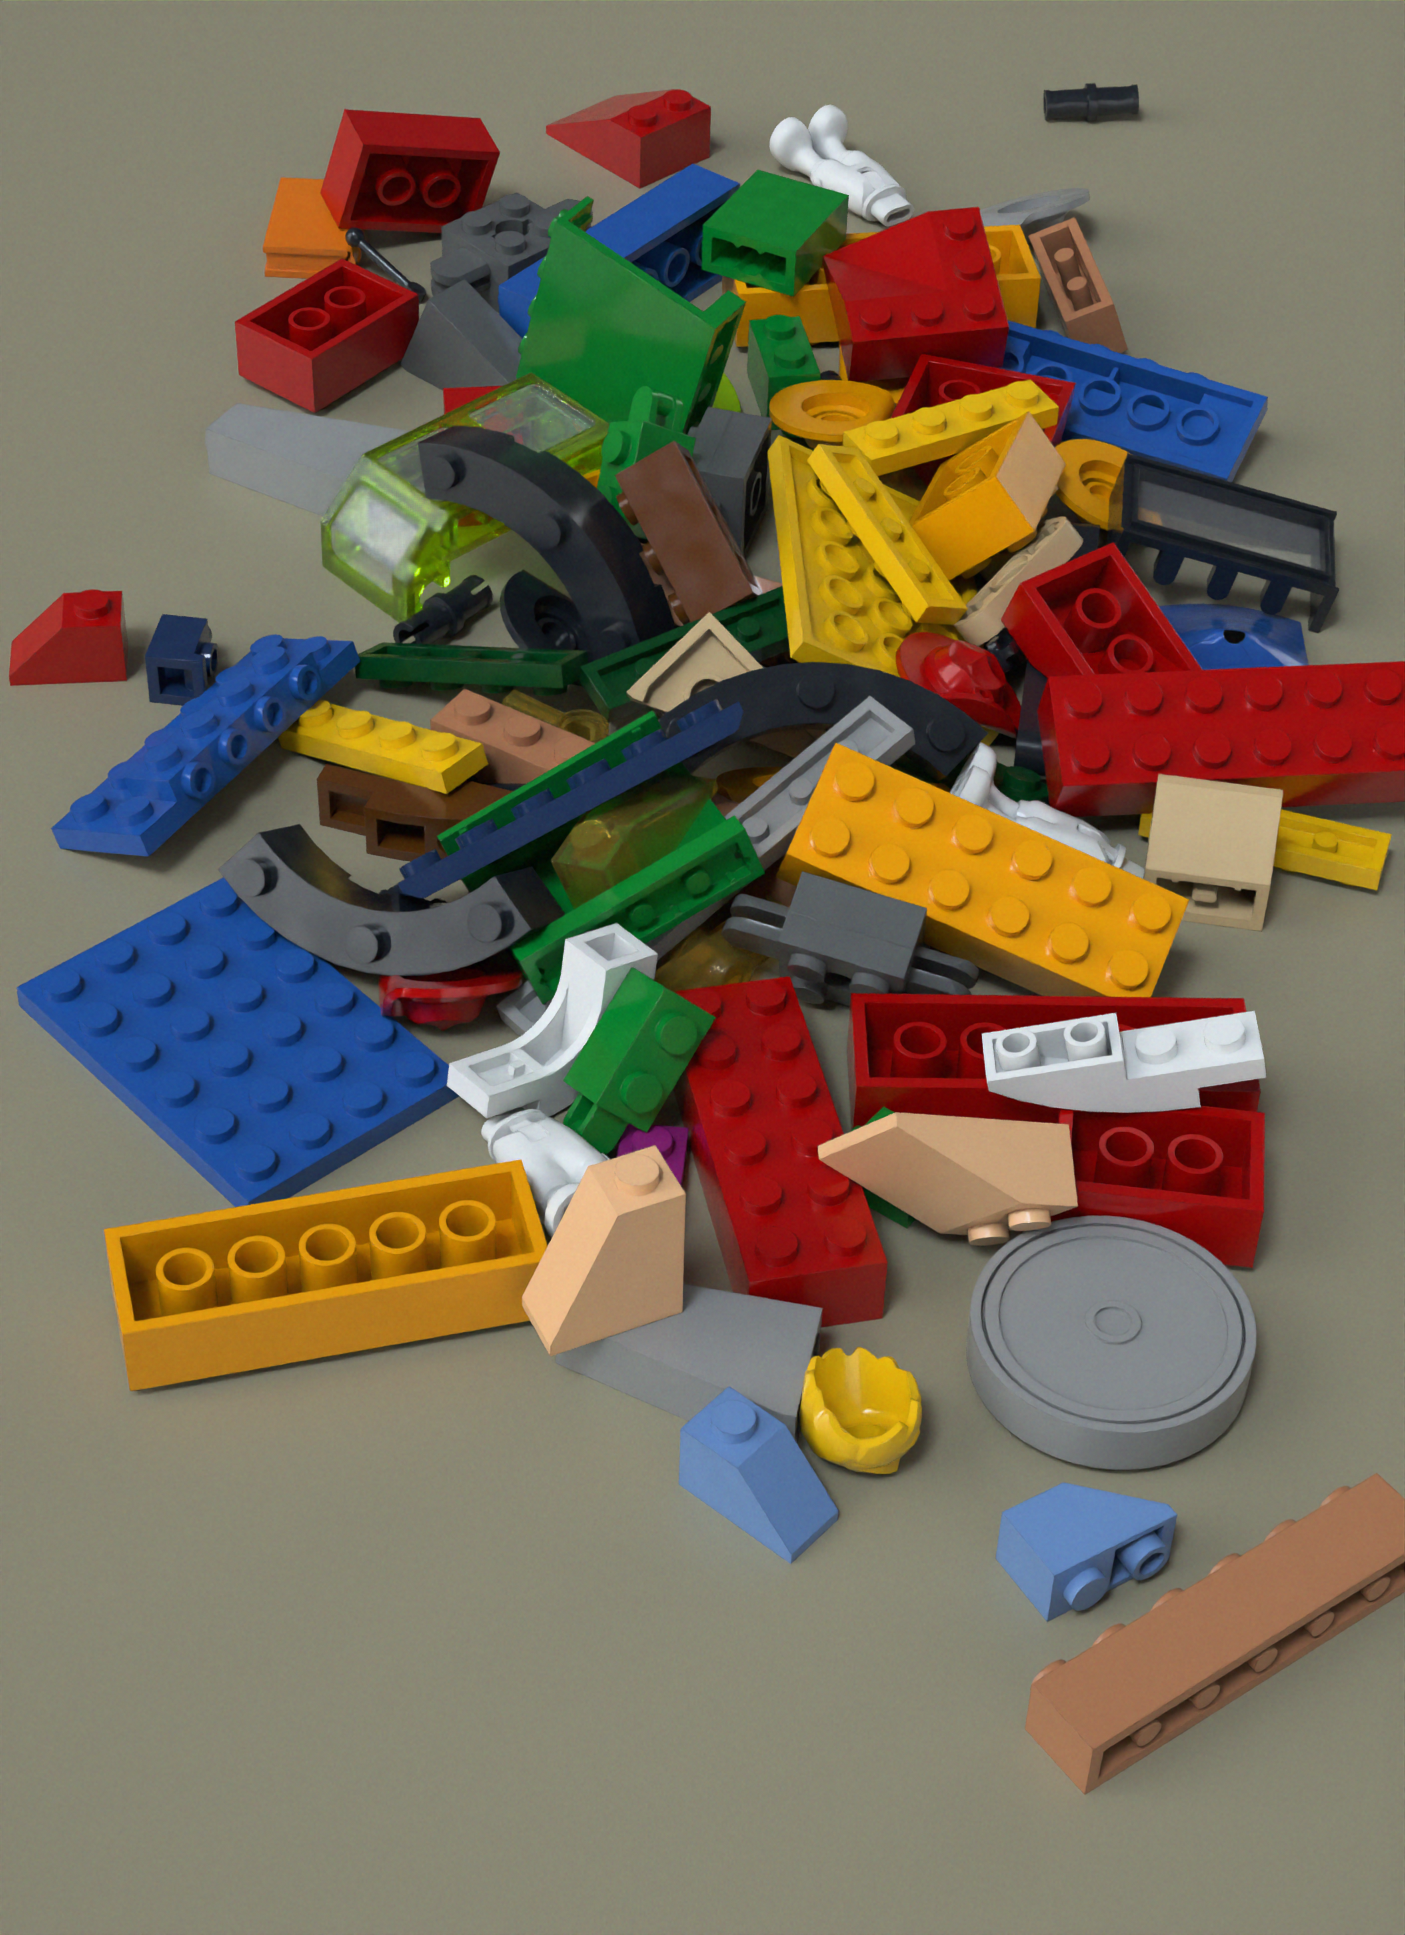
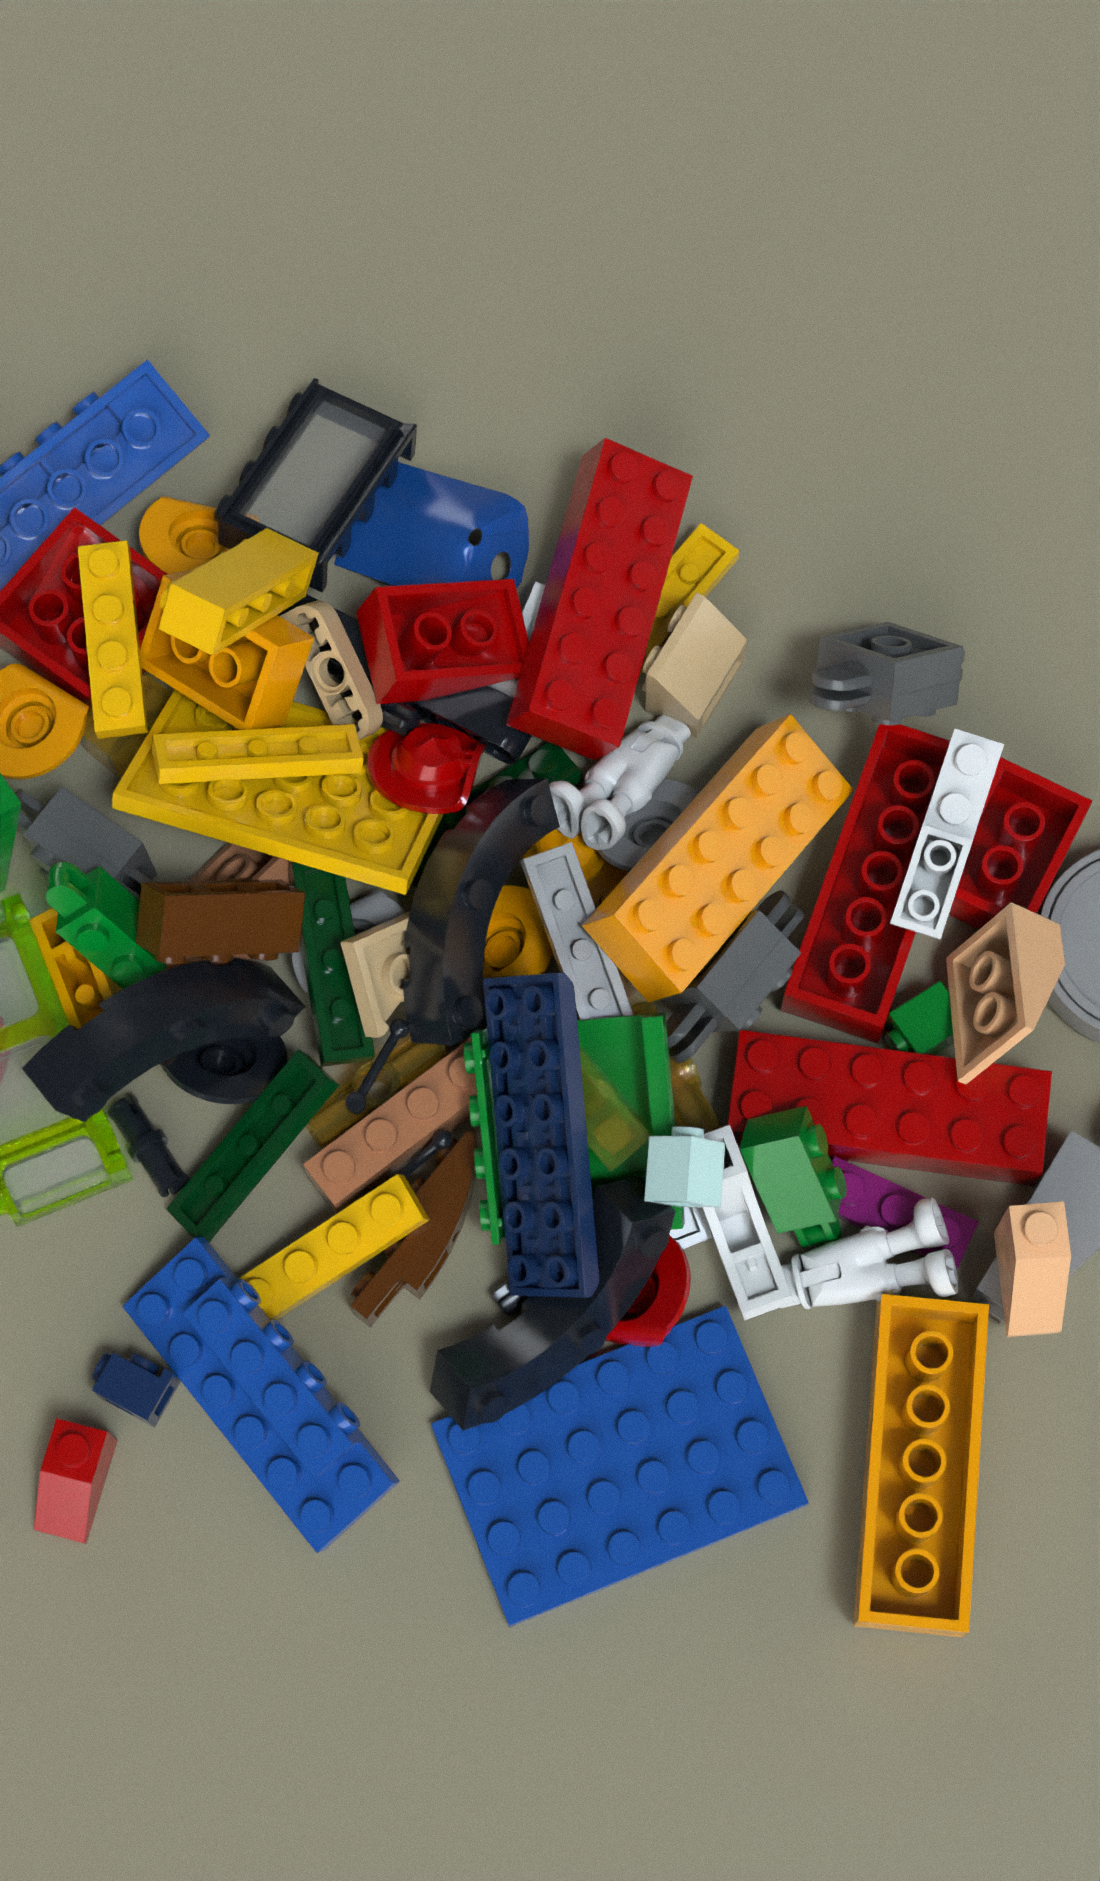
camera: 65 degrees left, 30 degrees up
(553, 710) = (356, 1100): none -> black hinge
(578, 901) = (684, 1169): none -> light aqua brick
(1039, 438) = (237, 591): none -> yellow brick
(1303, 991) = (886, 673): none -> dark grey brick

